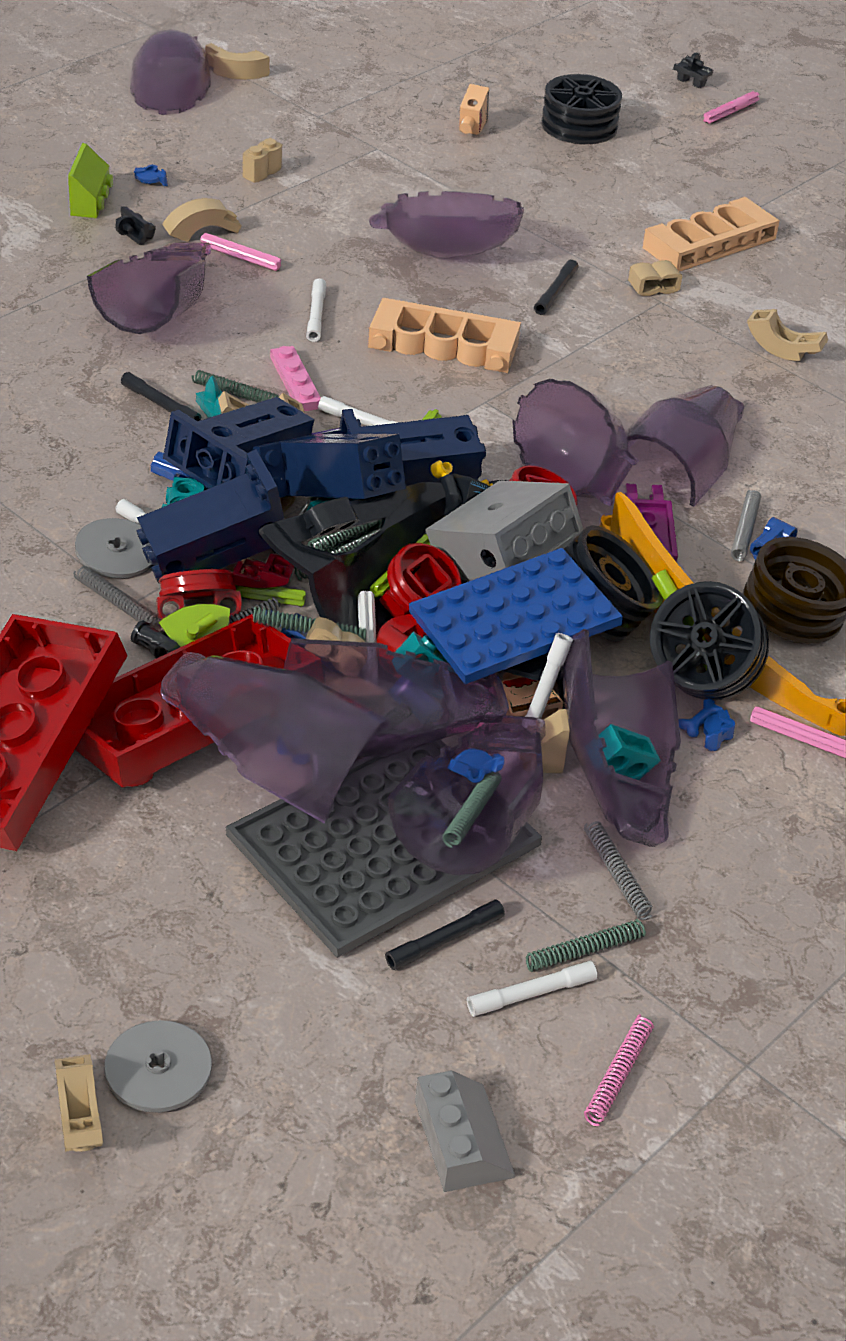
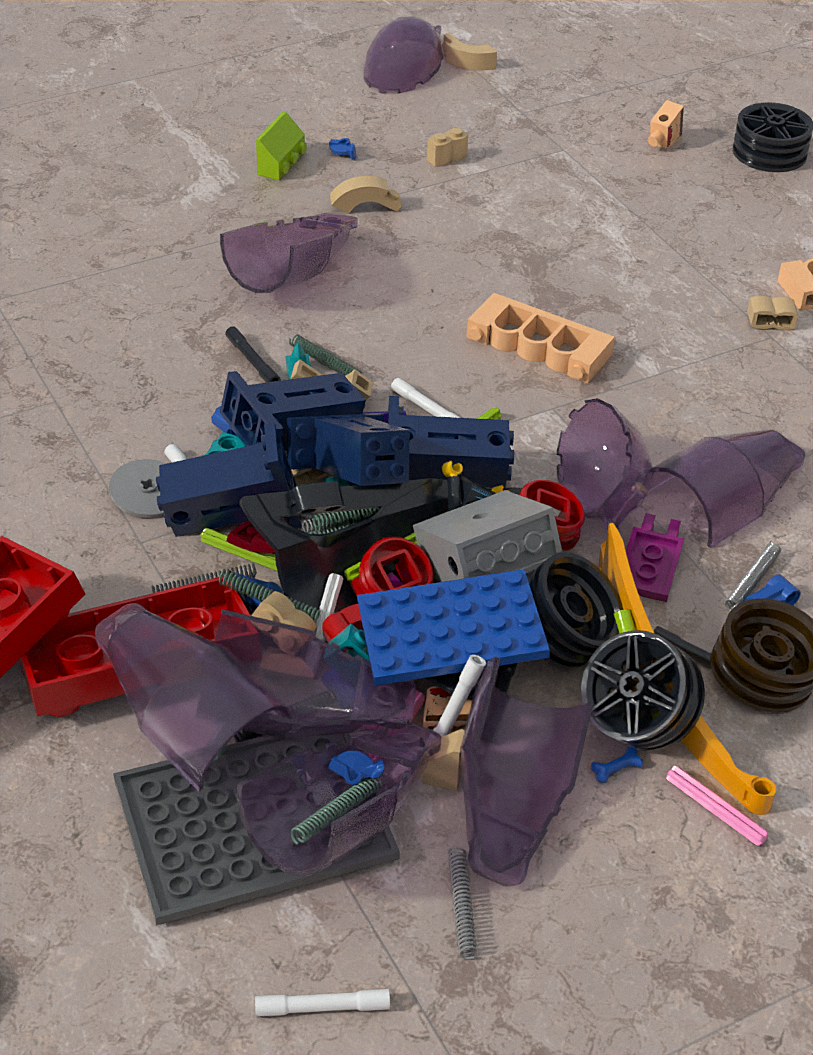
camera: 20 degrees right, 0 degrees up
(134, 226) = (304, 192): black hips -> none
(143, 613) = (116, 516): light grey piece -> none
(153, 639) = (137, 581): black connector -> none
(194, 622) = (174, 572): lime shield -> none
(197, 585) = (176, 536): red piece -> none
(242, 252) = (390, 230): bright pink axle -> none
(295, 376) = (383, 356): bright pink plate -> none
(314, 325) = (424, 308): white piece -> none
(416, 948) = (301, 919): black piece -> none
(450, 223) = (588, 231): clear purple windscreen -> none
(548, 297) = (657, 317): black piece -> none
(567, 948) = (397, 968): sand green piece -> none
(628, 752) = (510, 786): teal brick -> none
(717, 729) = (627, 780): blue piece -> none

